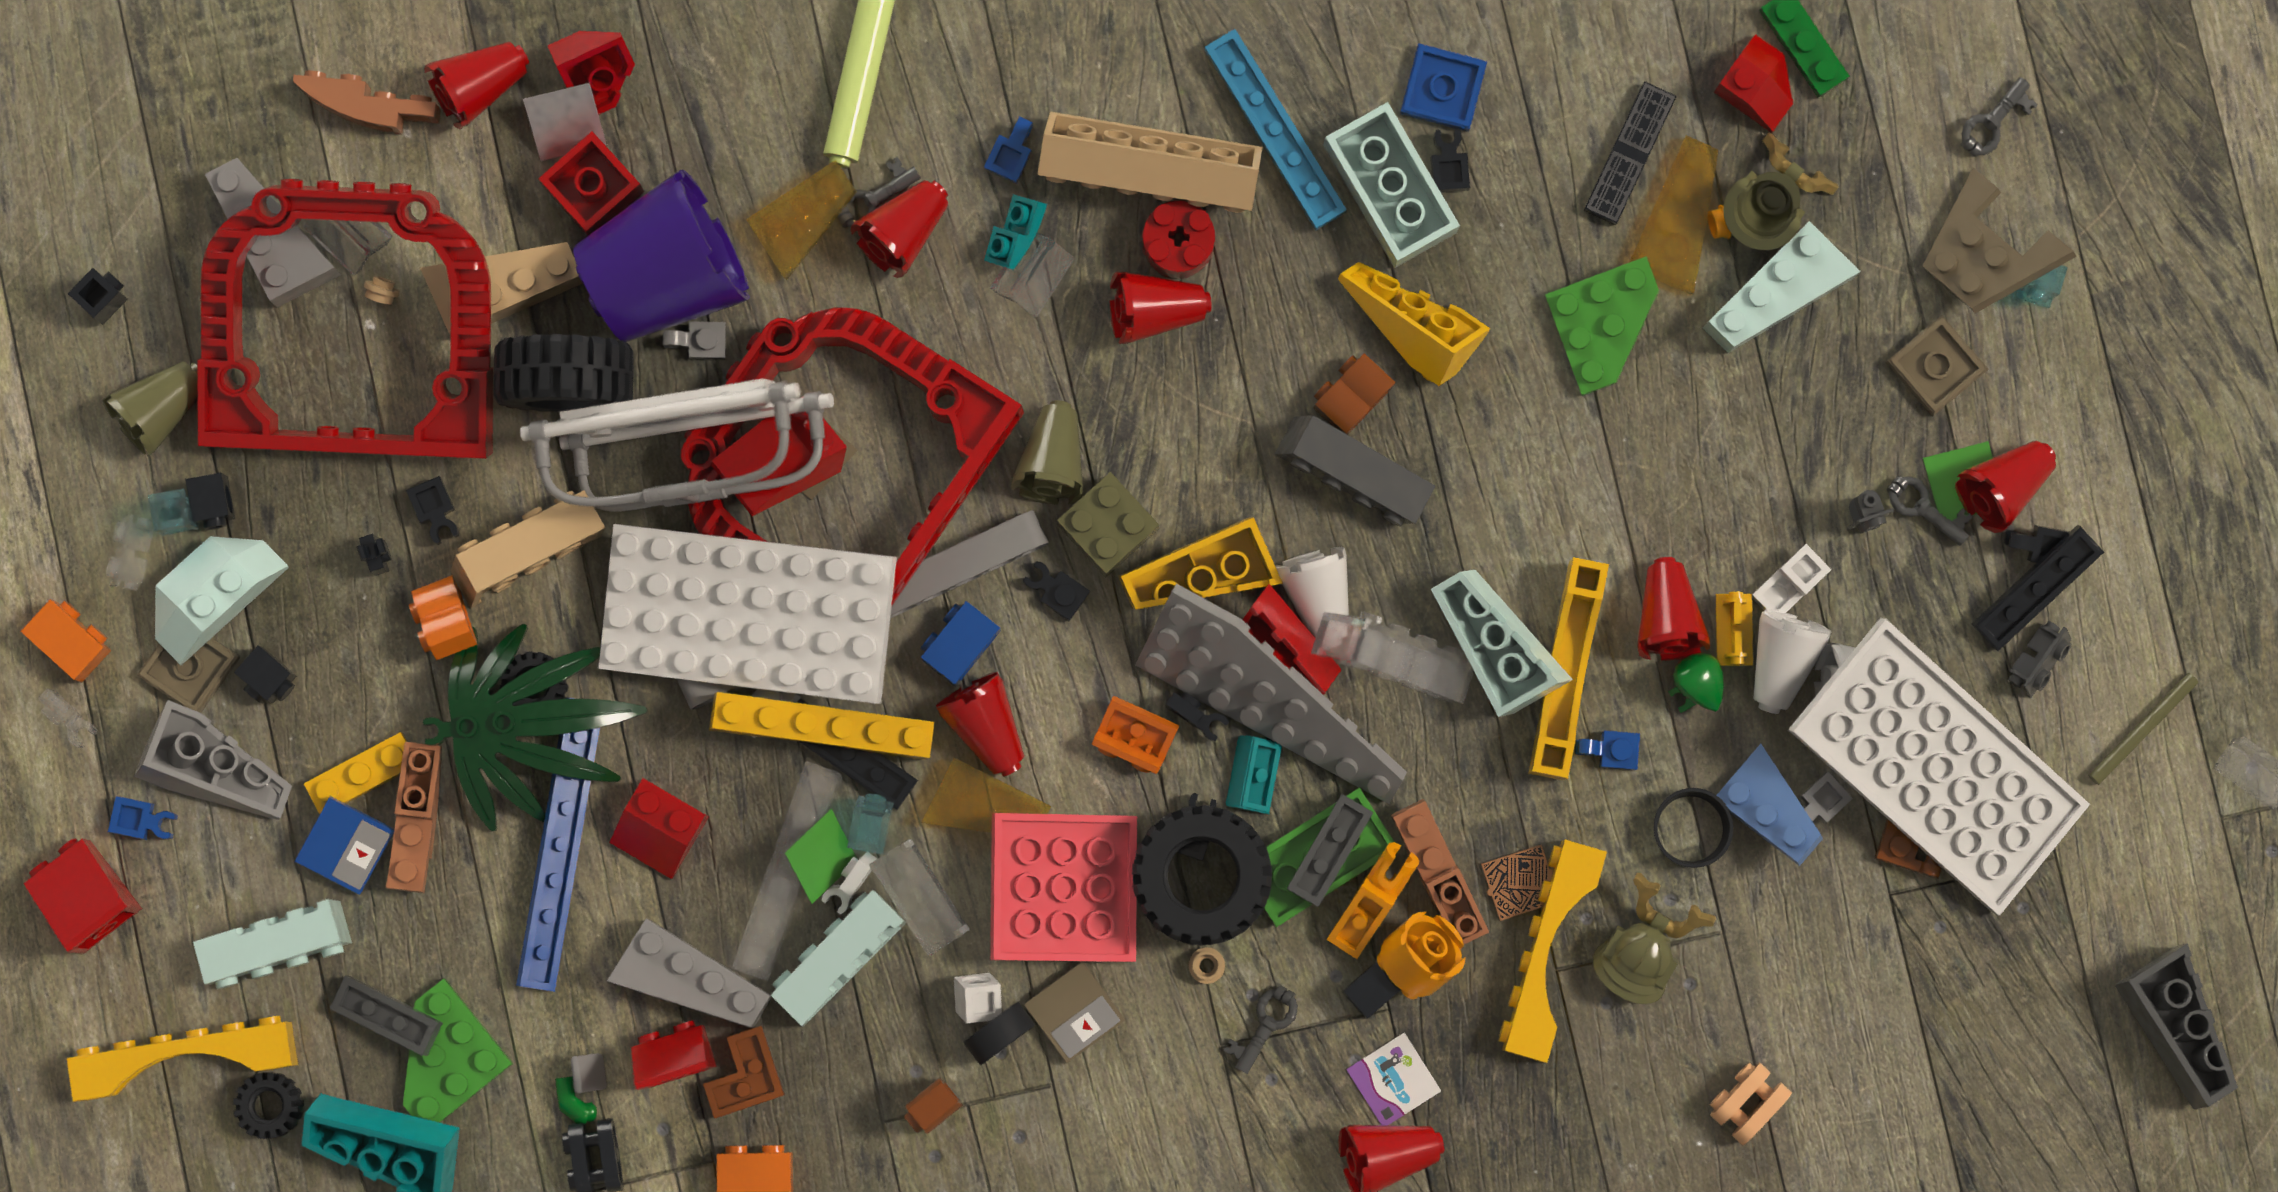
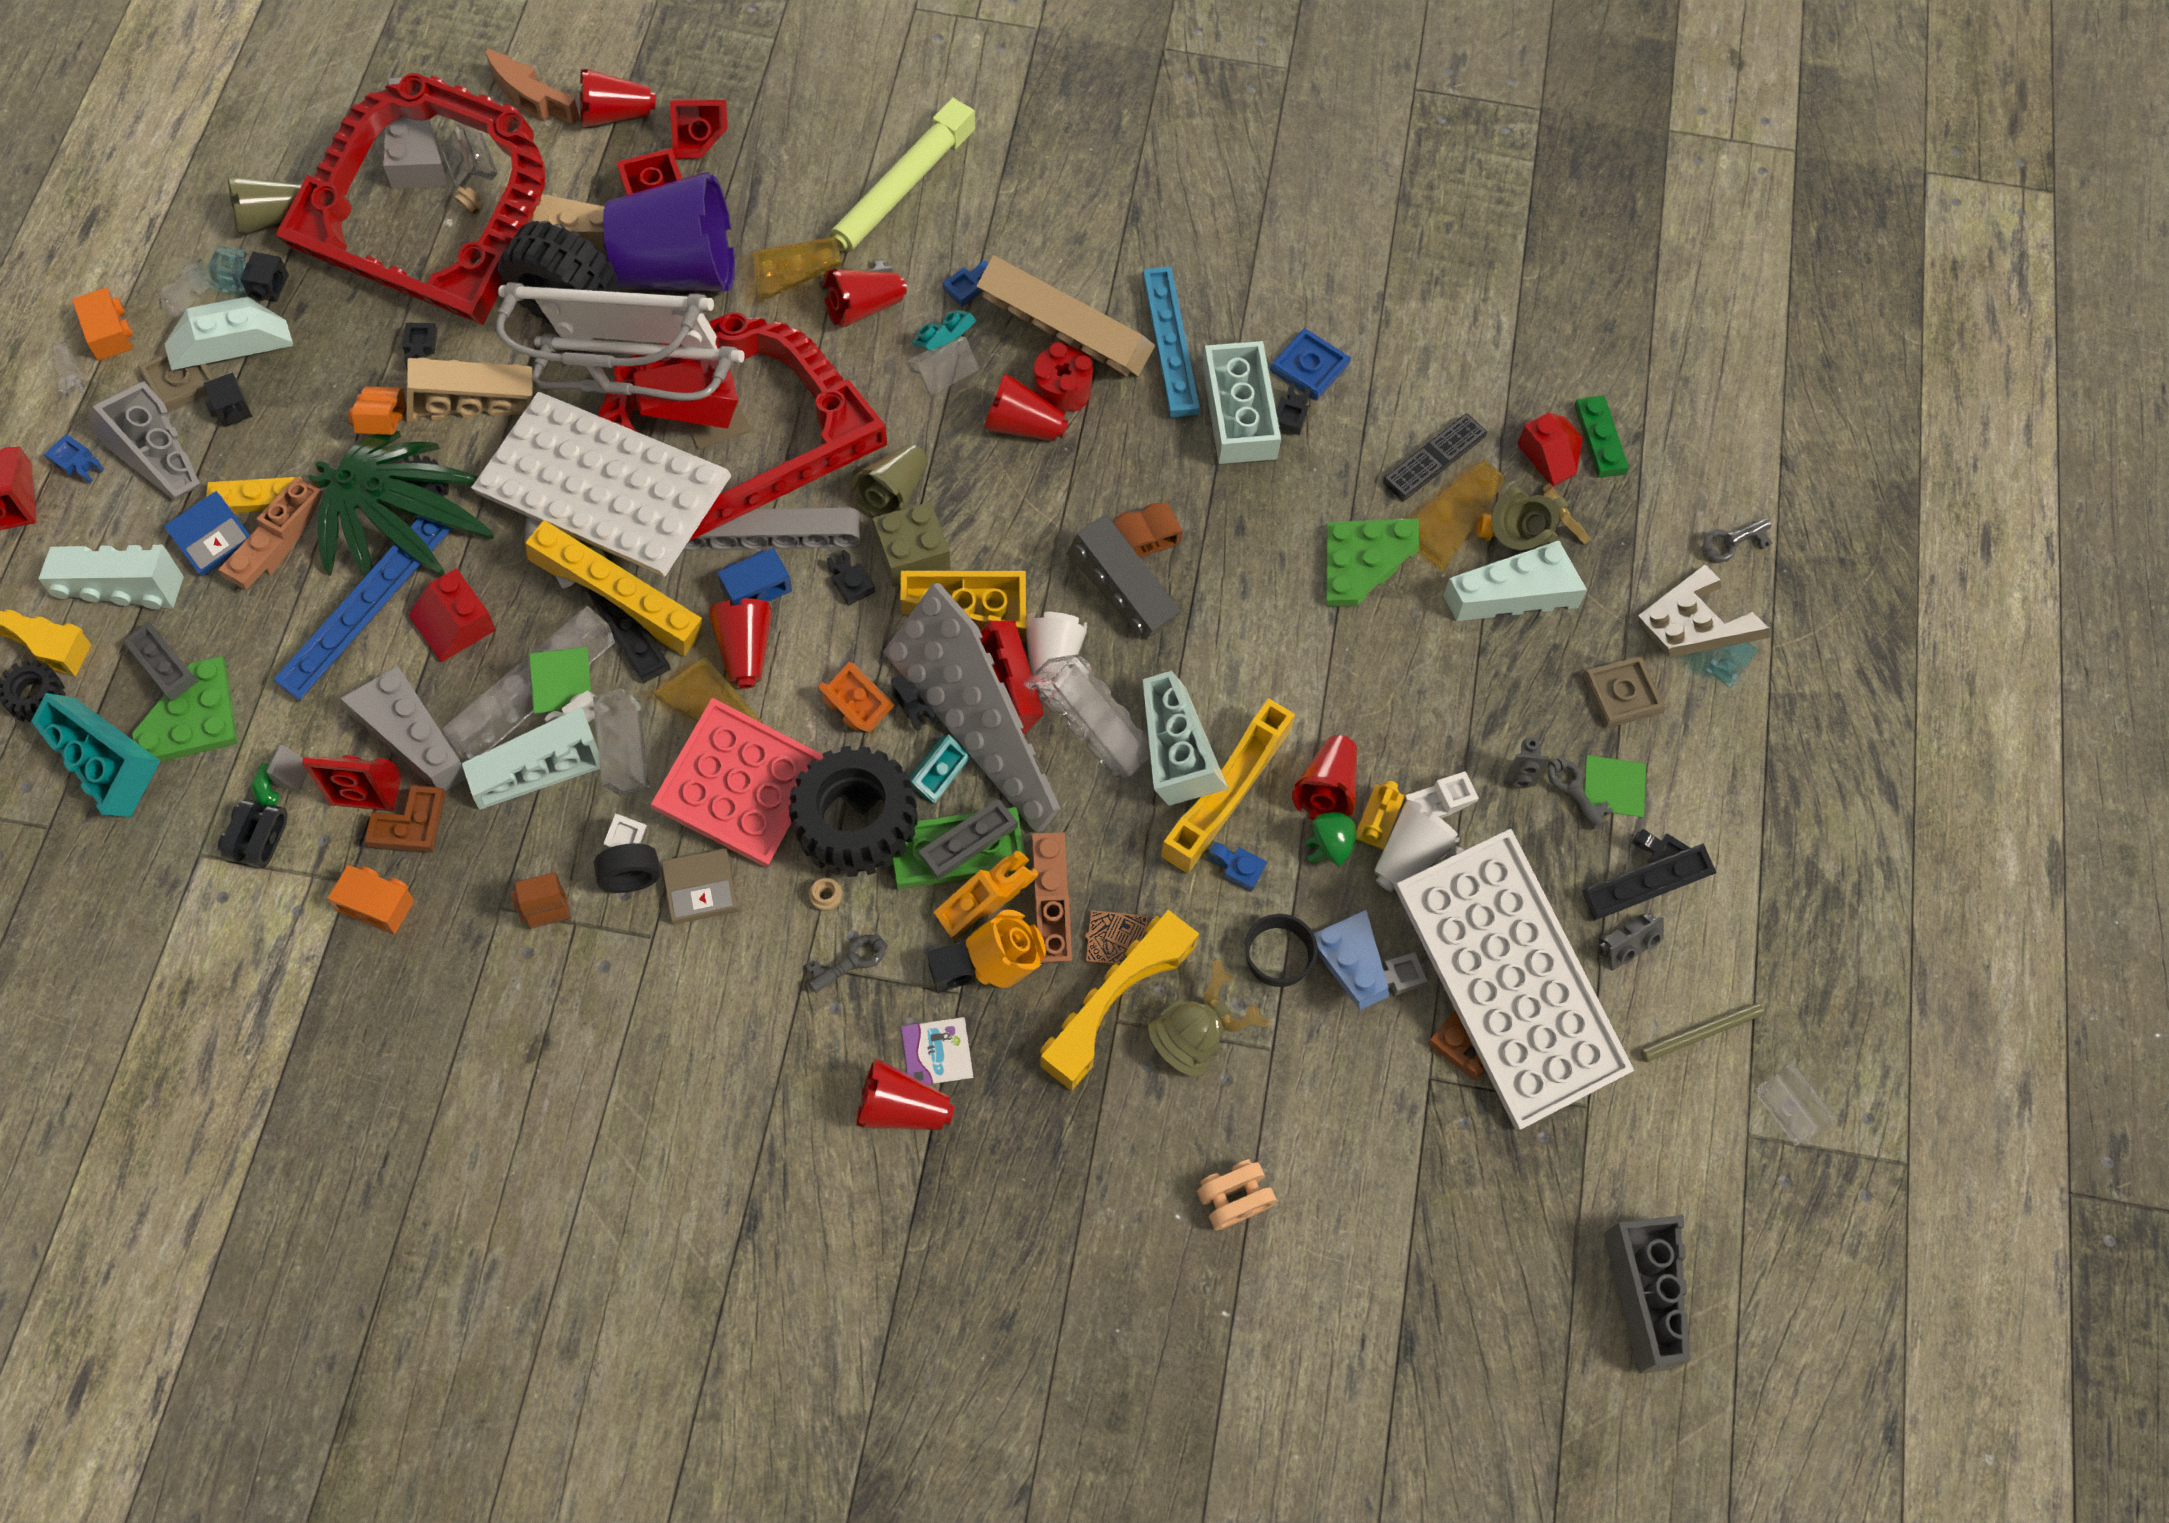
camera: 25 degrees right, 20 degrees down
(99, 295) = (270, 125): black brick -> none
(375, 553) = (357, 353): black plate -> none
(562, 119) = (656, 136): flat silver sticker -> none
(870, 824) = (613, 673): clear light blue brick -> none
(1424, 333) = (1215, 504): yellow wedge -> none
(2005, 484) = (1647, 790): red cone -> none

